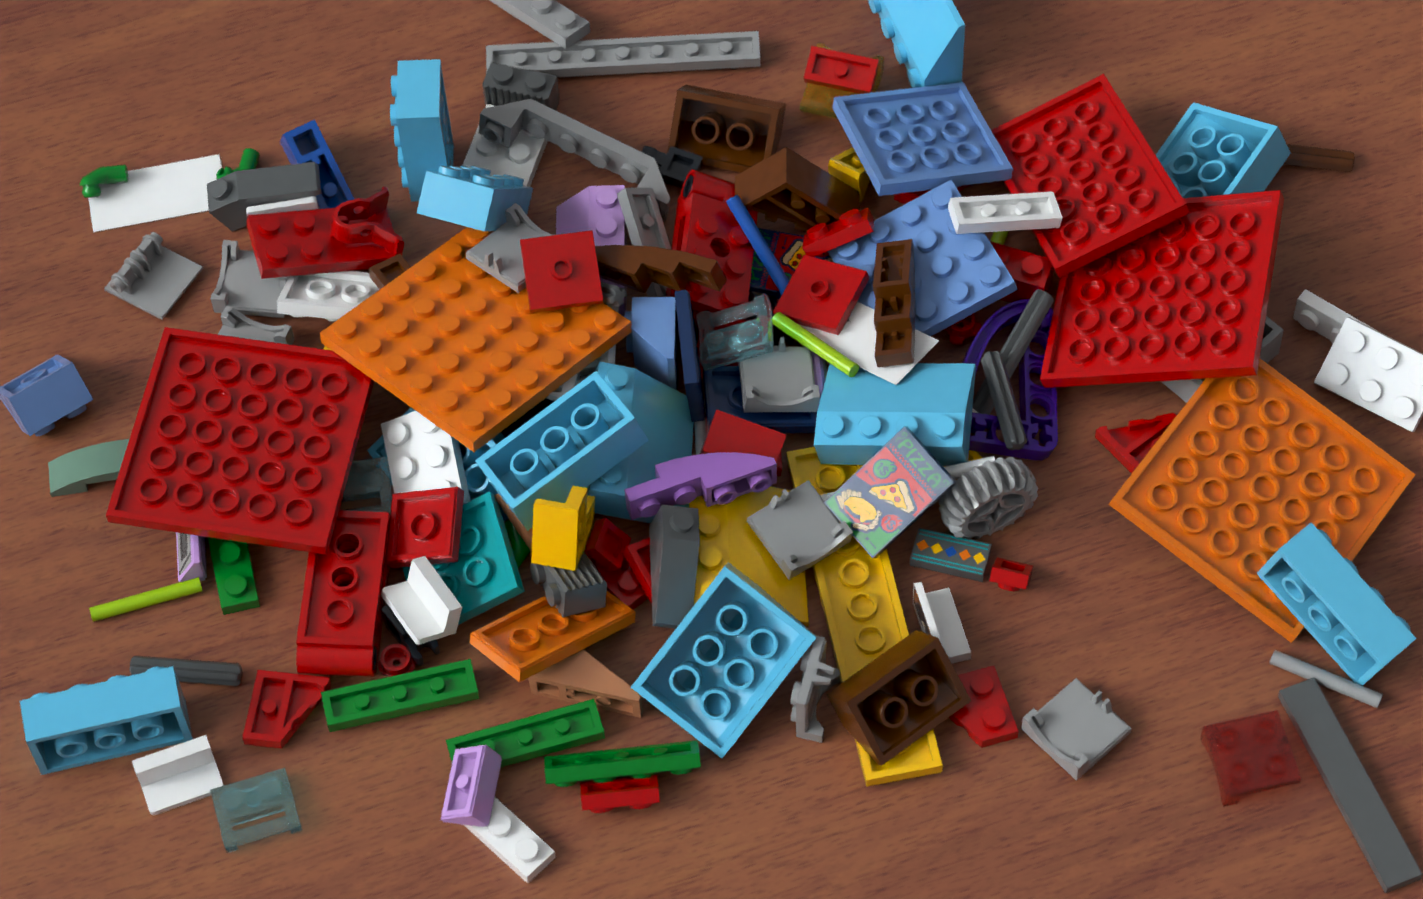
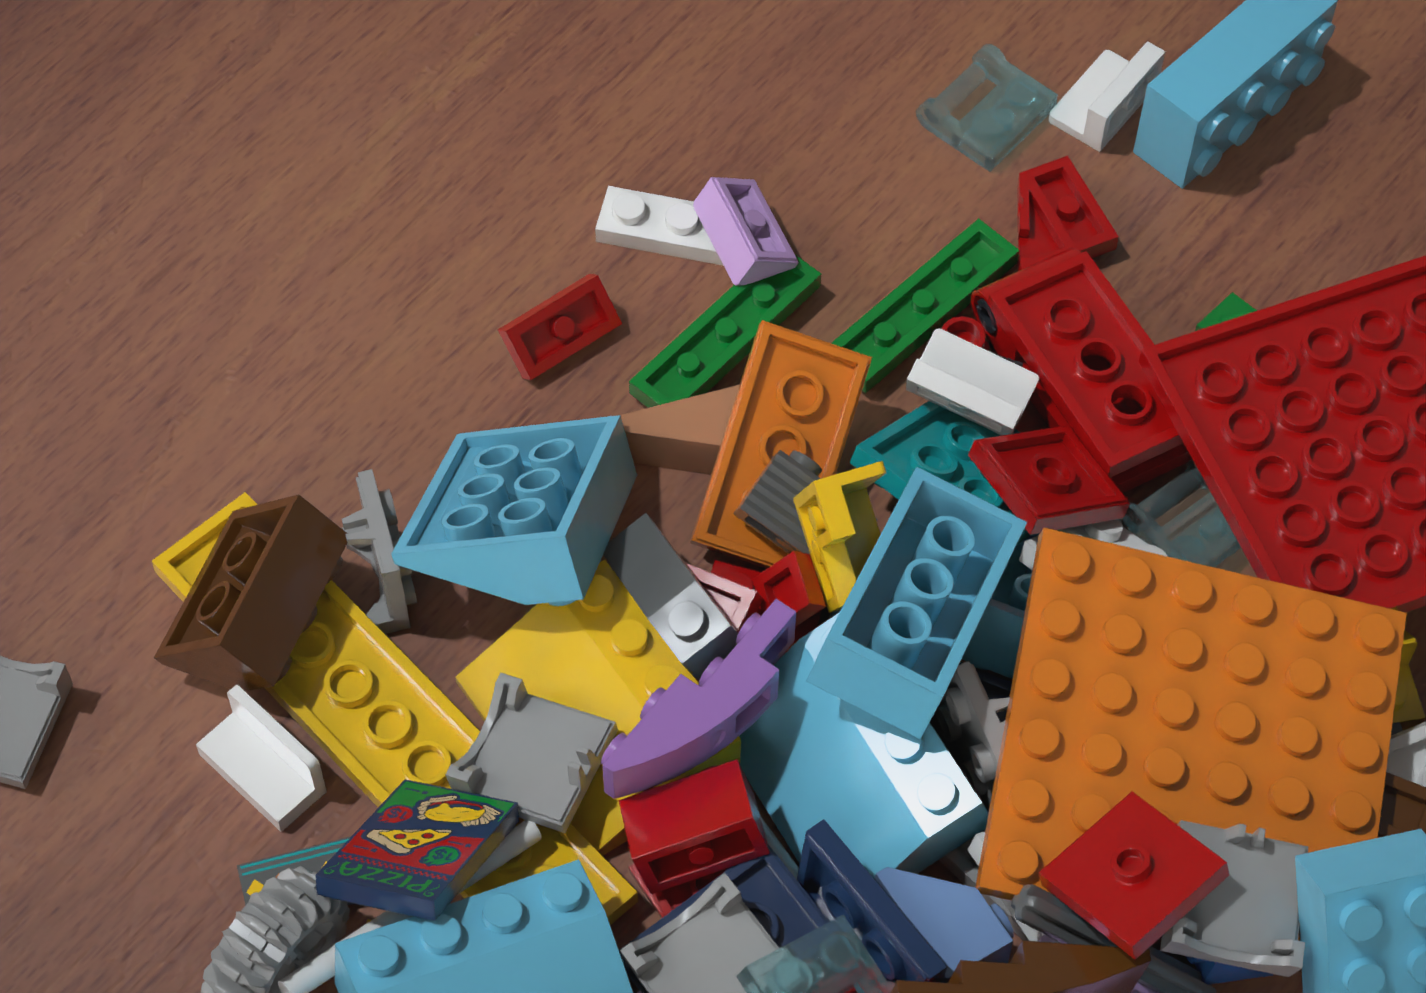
camera: 145 degrees right, 0 degrees up
(145, 599) = (1346, 252): lime bar -> none
(192, 670) = (1208, 208): dark grey axle -> none
(635, 761) = (583, 360): green plate -> none
(988, 714) = (143, 692): red wing -> none
(1011, 574) = (193, 886): red plate -> none

